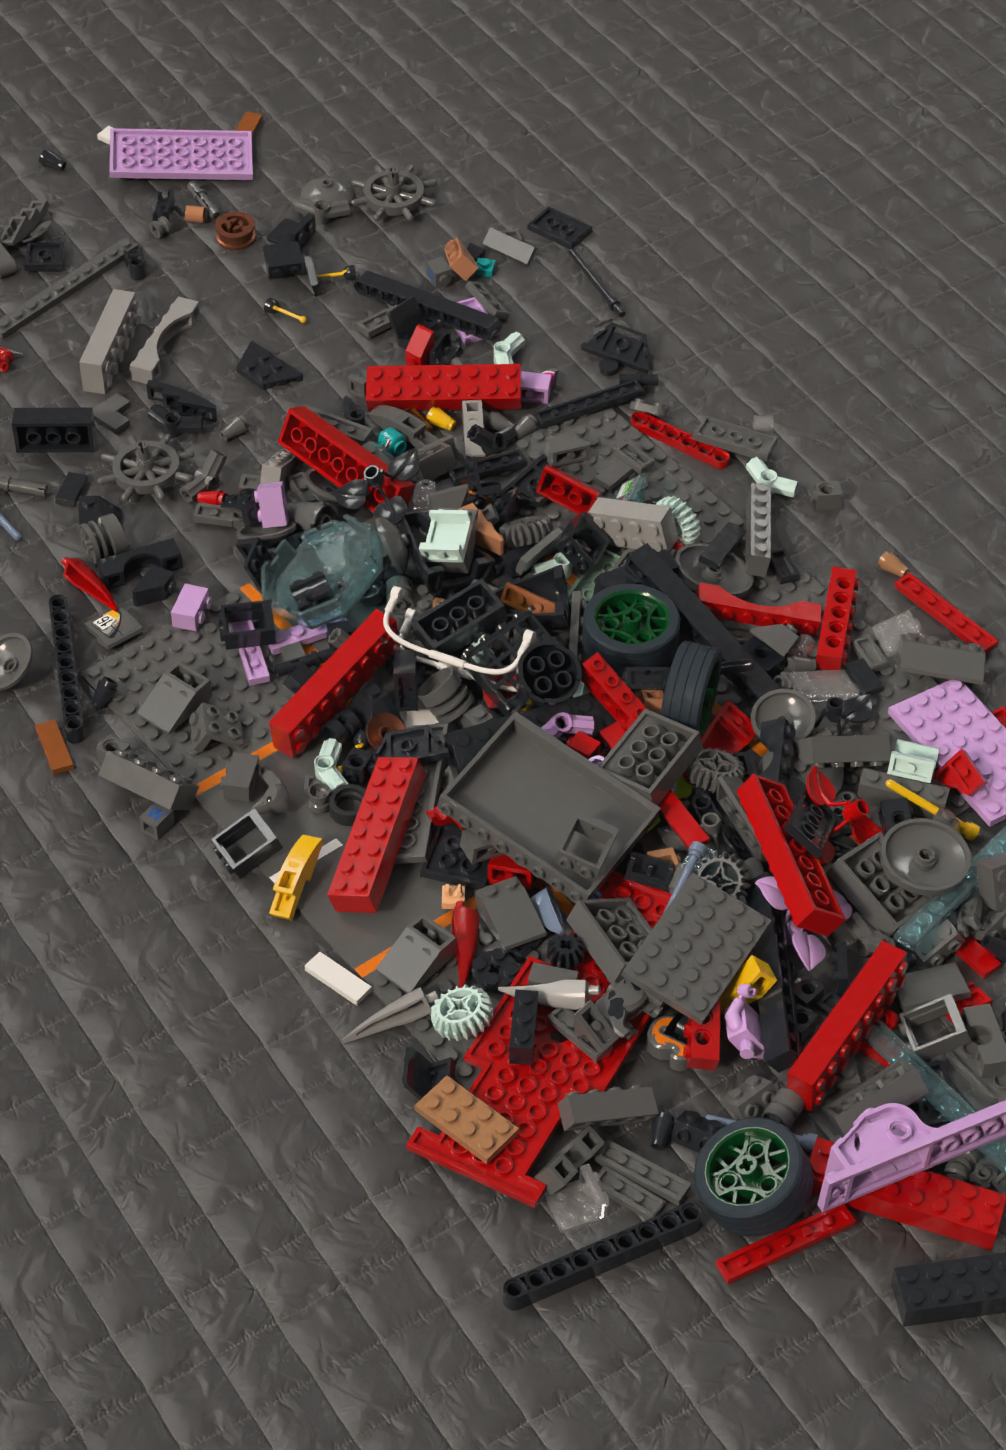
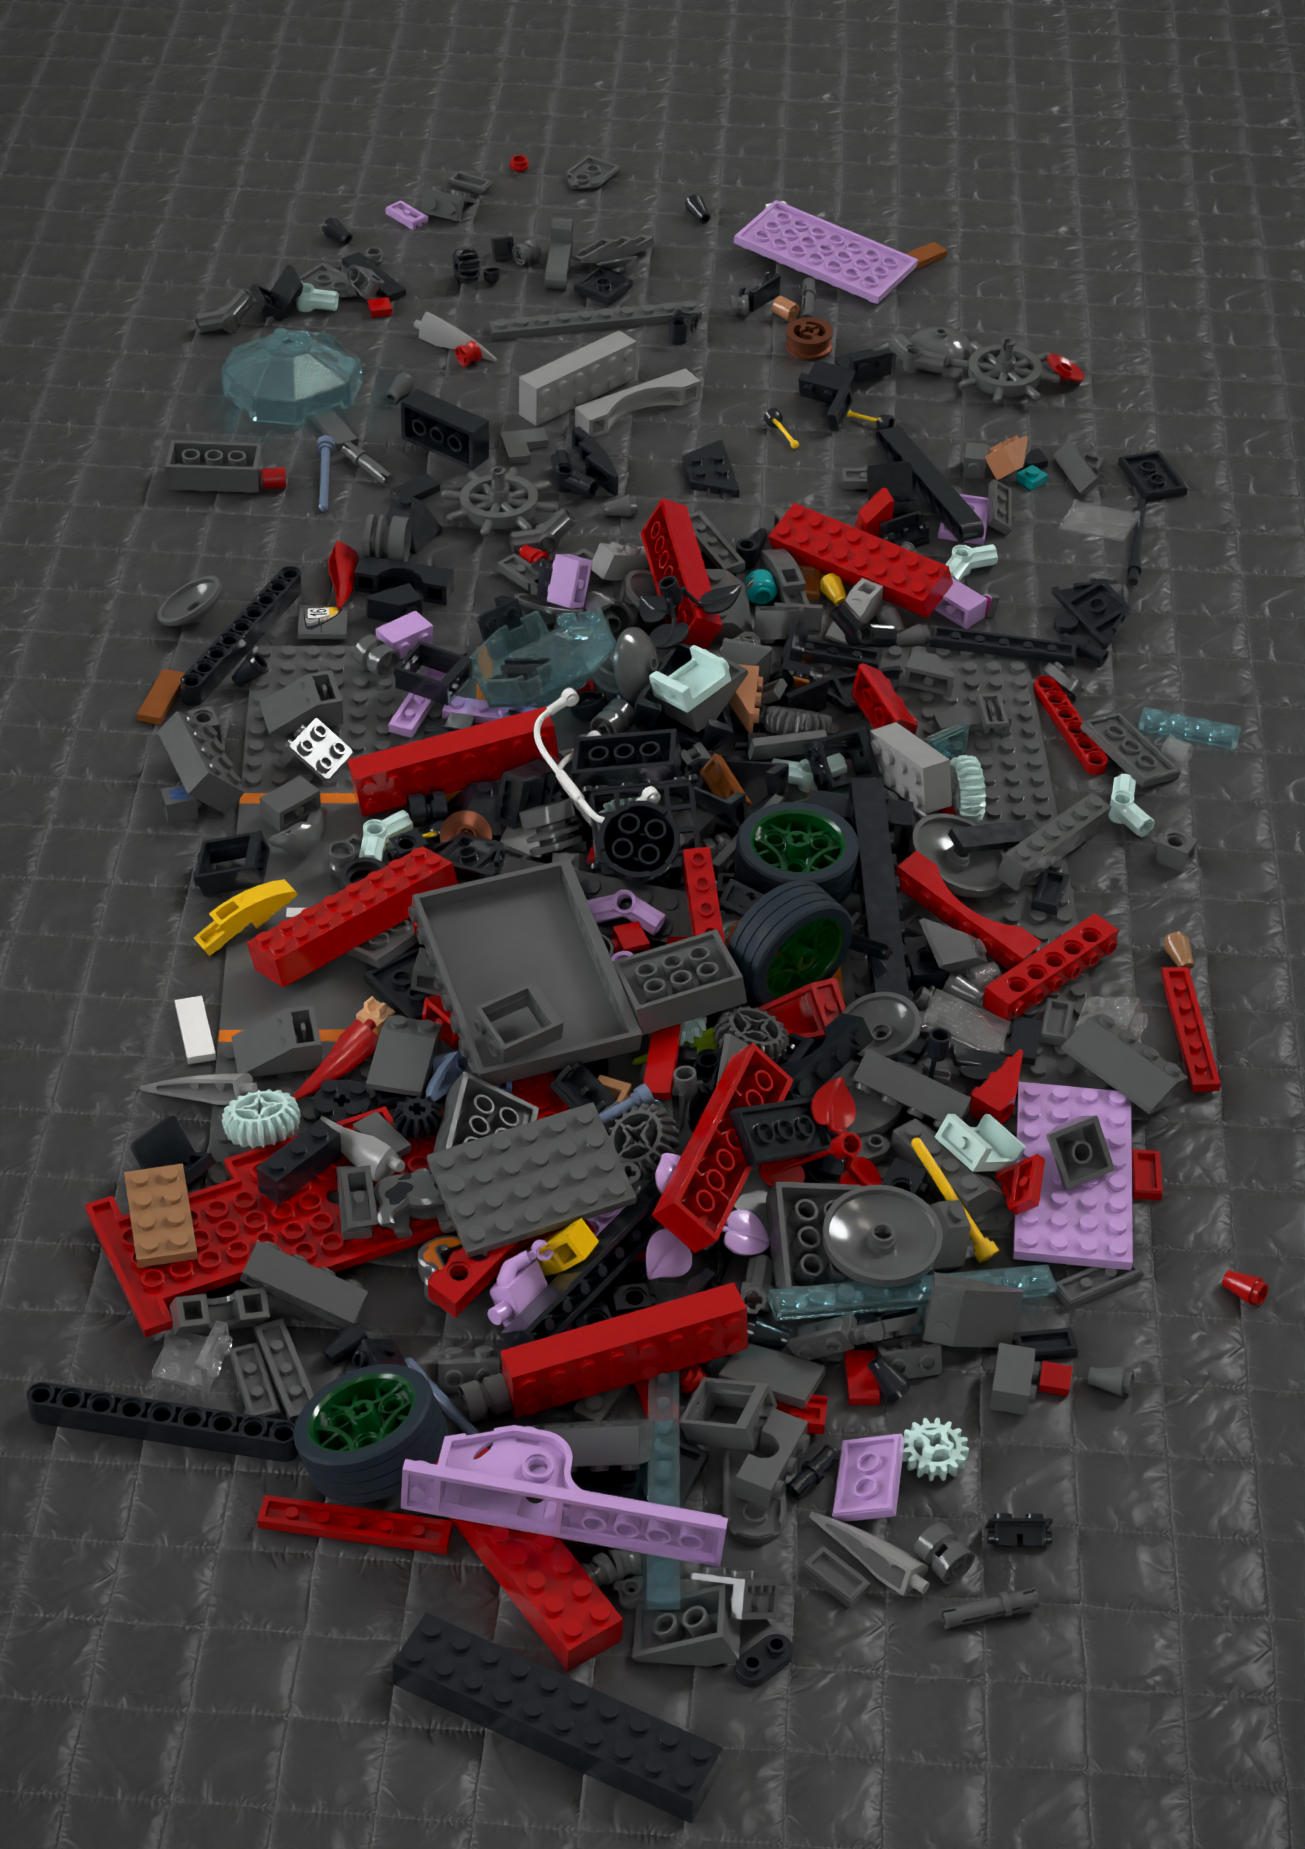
camera: 35 degrees right, 5 degrees down
(191, 633) = (376, 656): none -> dark grey wheel
(431, 172) = (1065, 368): none -> red dish
(559, 279) = (1099, 521): none -> clear piece
(752, 403) = (1189, 728): none -> clear light blue plate
(886, 717) = (998, 1092): none -> red slope
(975, 730) = (1080, 1150): none -> dark grey slope

